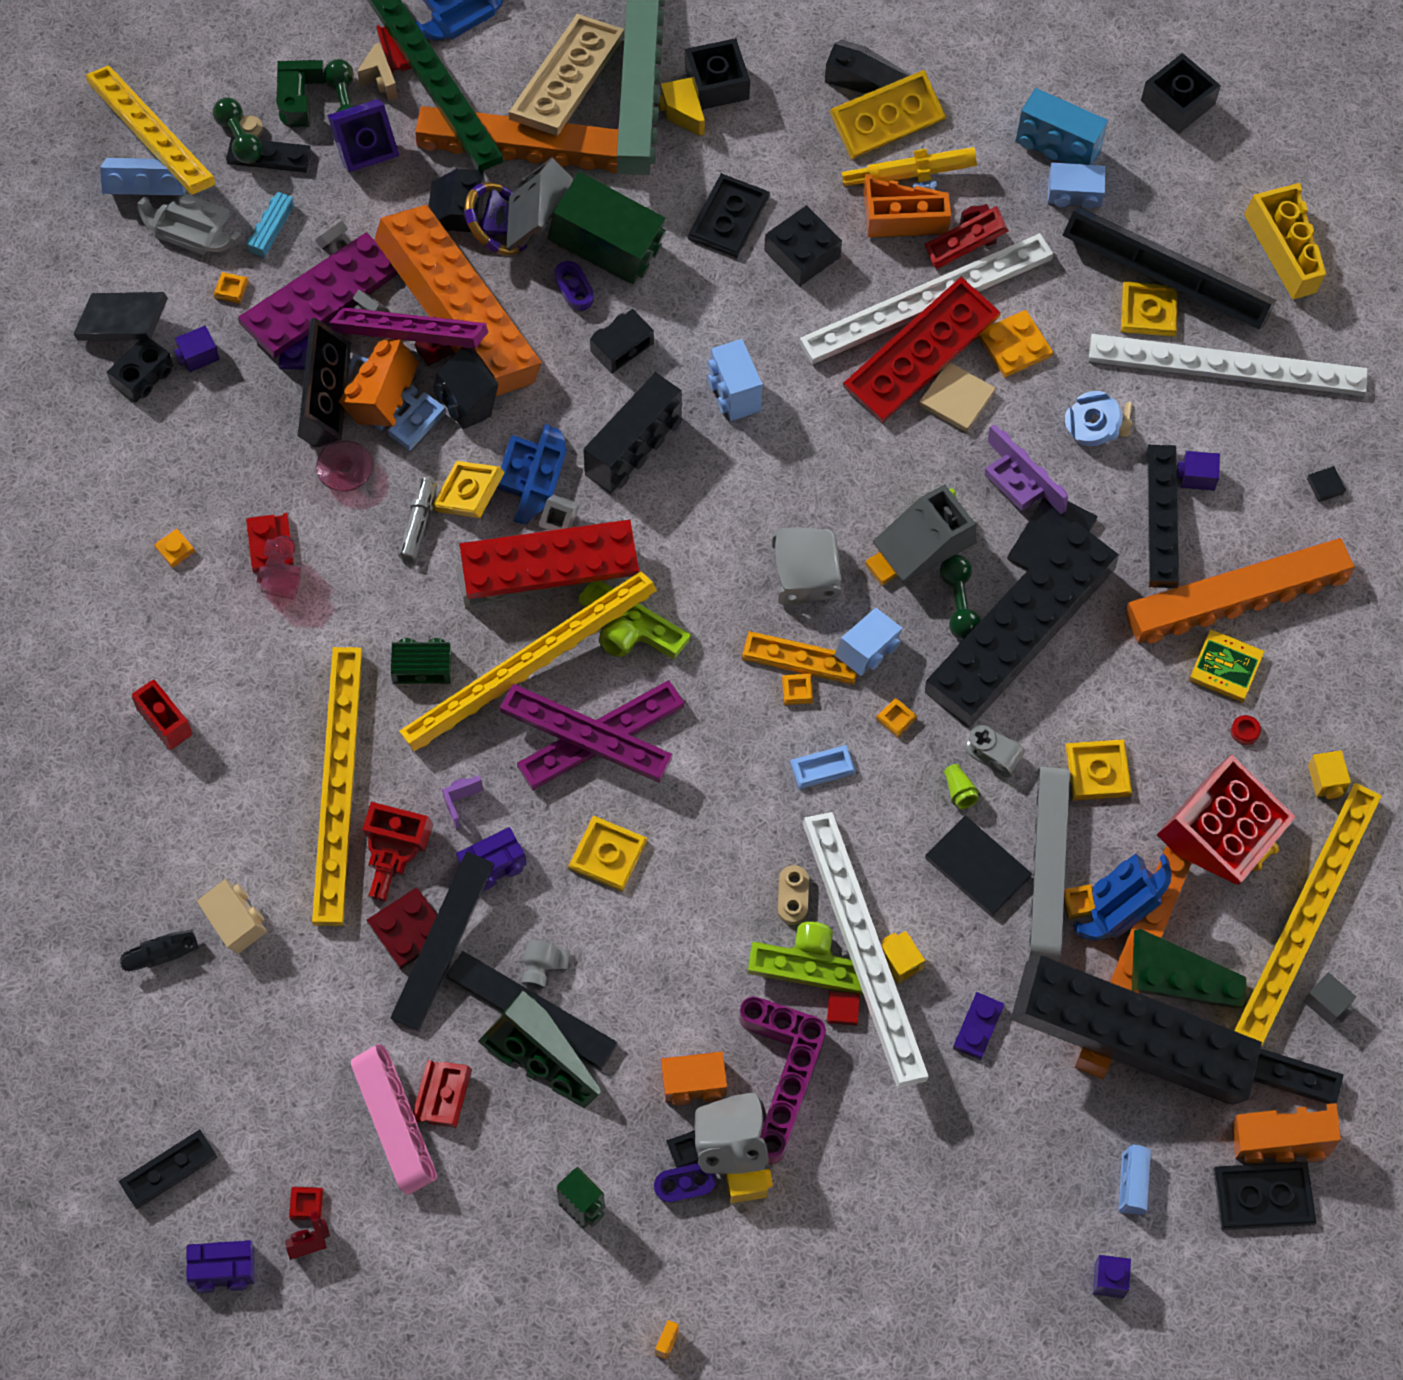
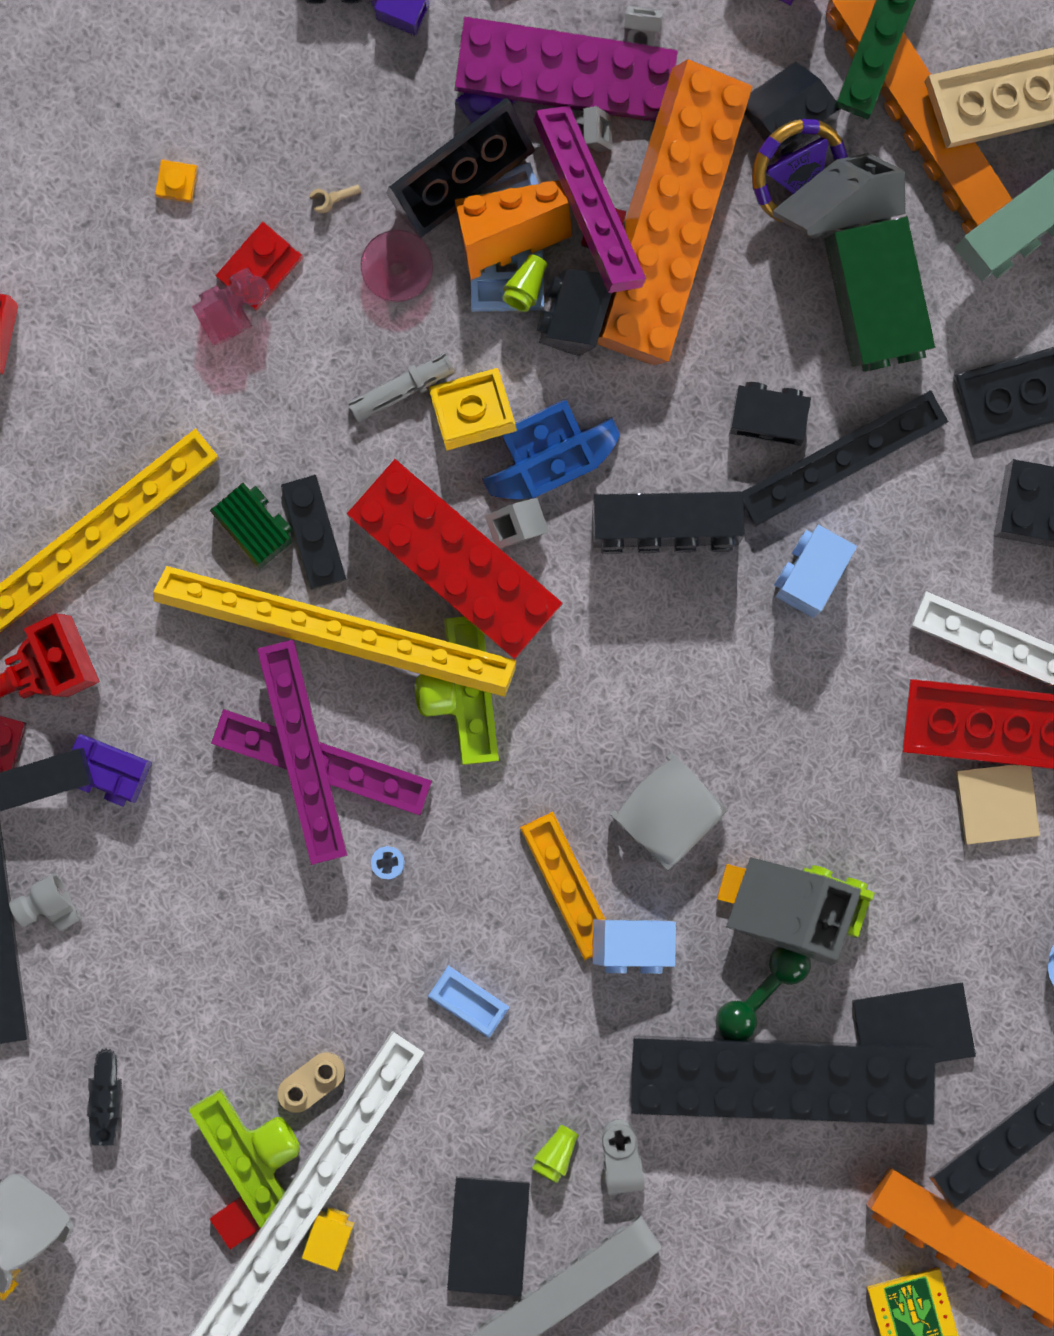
camera: 55 degrees right, 20 degrees up
(269, 472) = (333, 197): none -> tan hand
(424, 403) = (525, 284): none -> lime cone
(460, 789) = (151, 675): medium lavender bracket -> none
(461, 634) = (313, 532): none -> black plate
(574, 287) = (794, 312): dark purple plate -> none
(607, 853) = (208, 870): yellow tile -> none
(684, 317) = (843, 458): none -> black plate
(694, 1078) = (47, 1142): orange brick -> none
(695, 1022) = (104, 1099): none -> black hinge
(698, 755) = (379, 854): none -> light blue bush
(791, 1074) = (126, 1229): magenta beam -> none
(797, 689) = (531, 909): light orange tile -> none
(896, 717) = (581, 1031): light orange tile -> none
(1019, 476) = (950, 944): medium lavender bracket -> none
(1098, 770) = (690, 1274): yellow tile -> none

